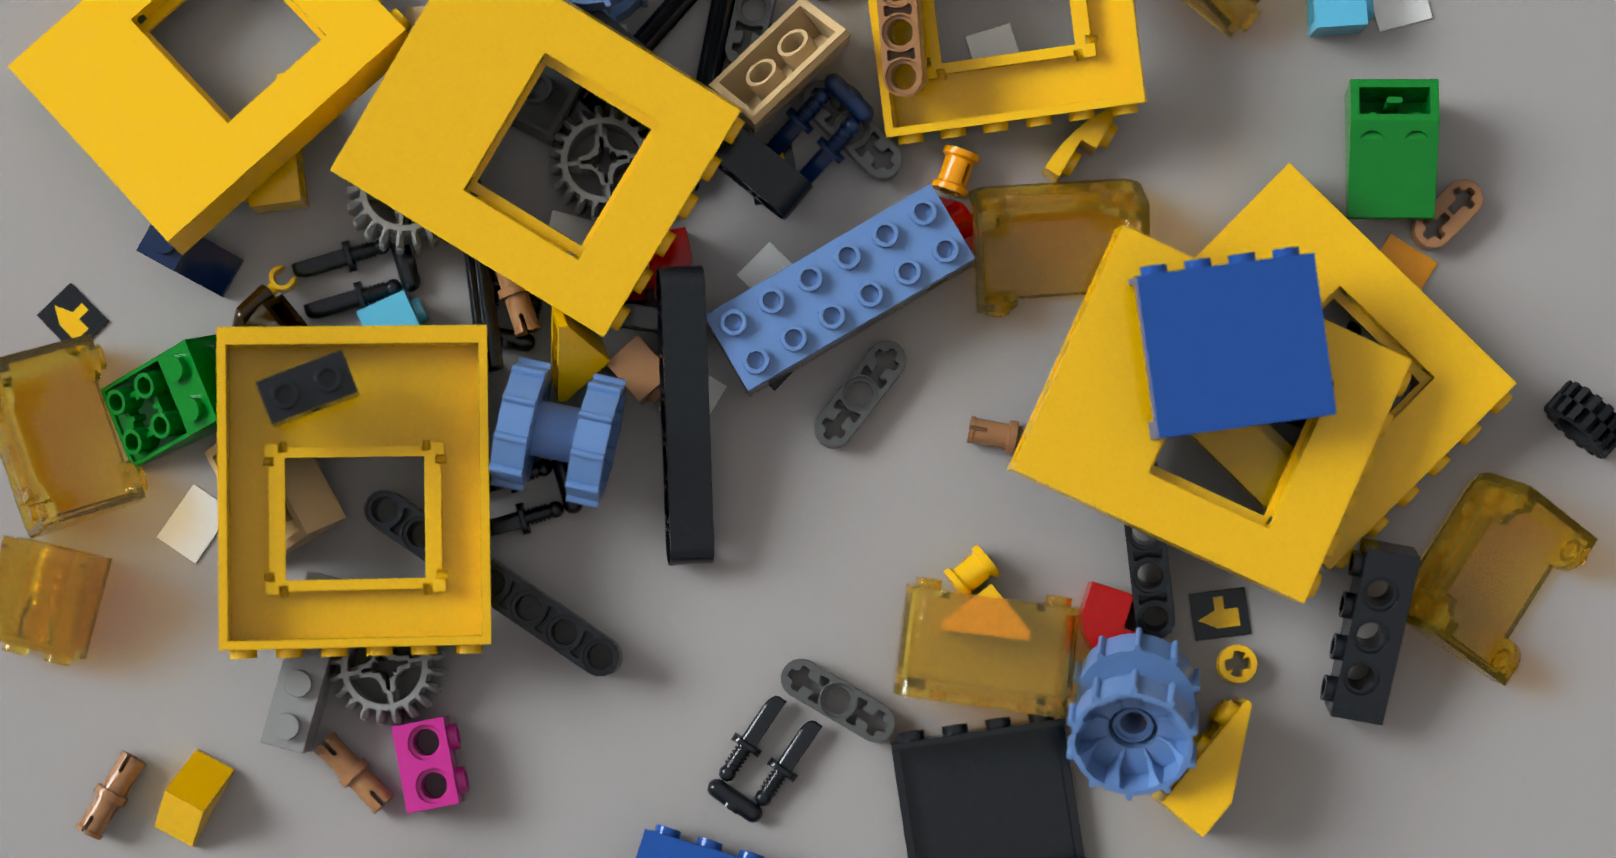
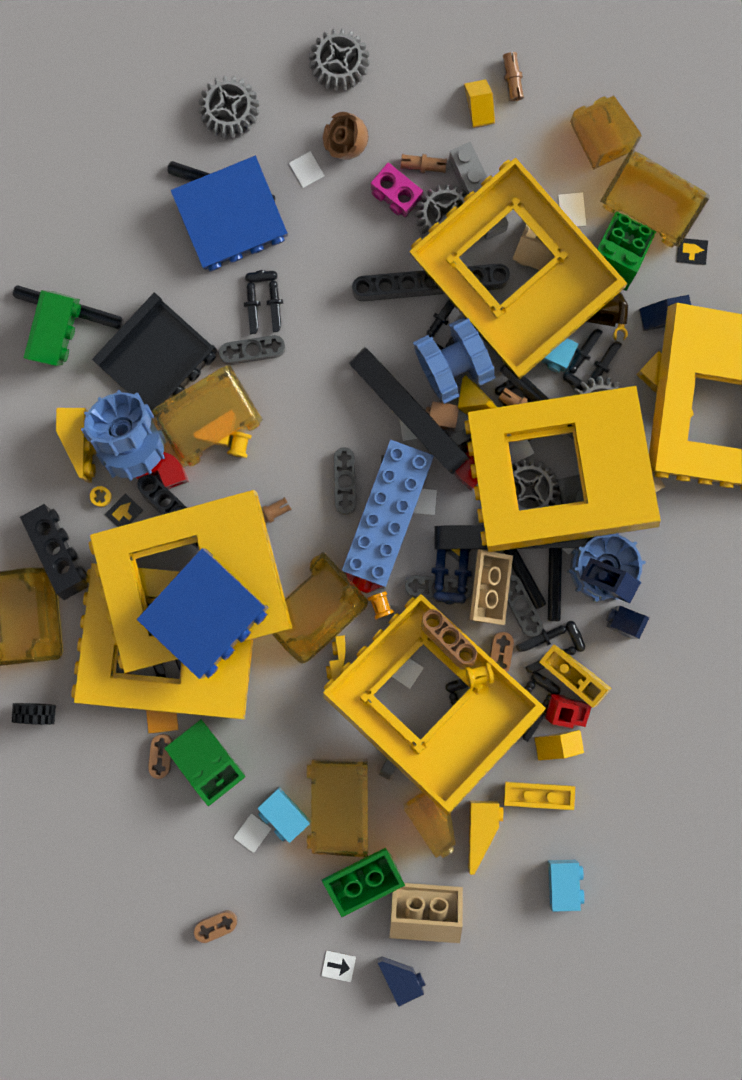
camera: 140 degrees right, 0 degrees up
(307, 388) = (568, 287): black brick -> none

